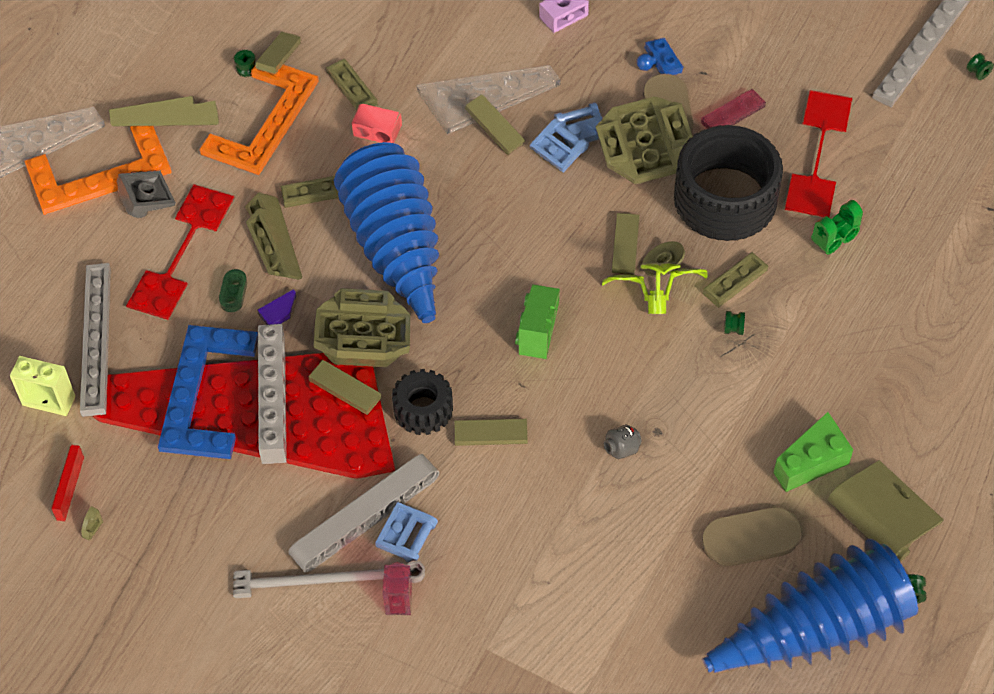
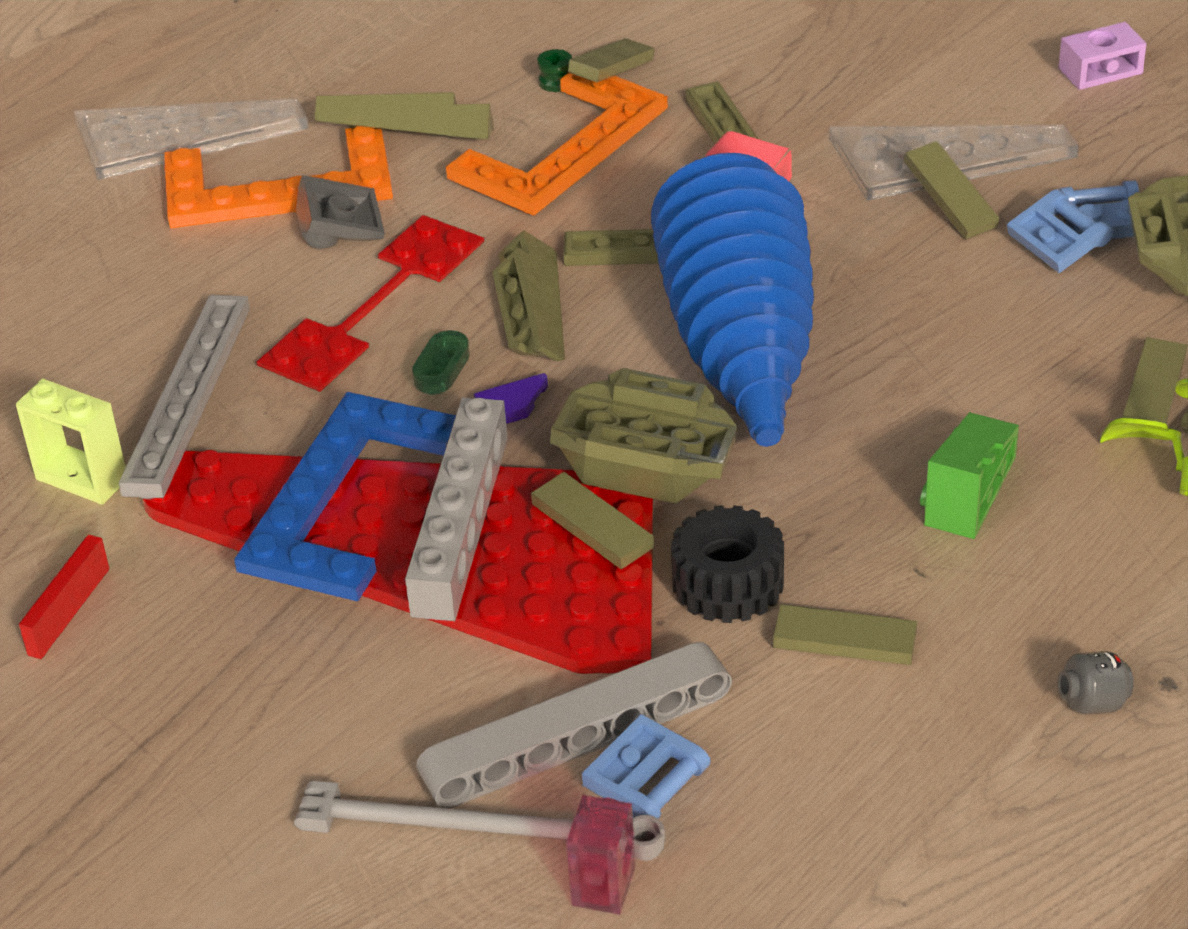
camera: 15 degrees right, 15 degrees down
(91, 523) = (82, 663): olive tile -> none

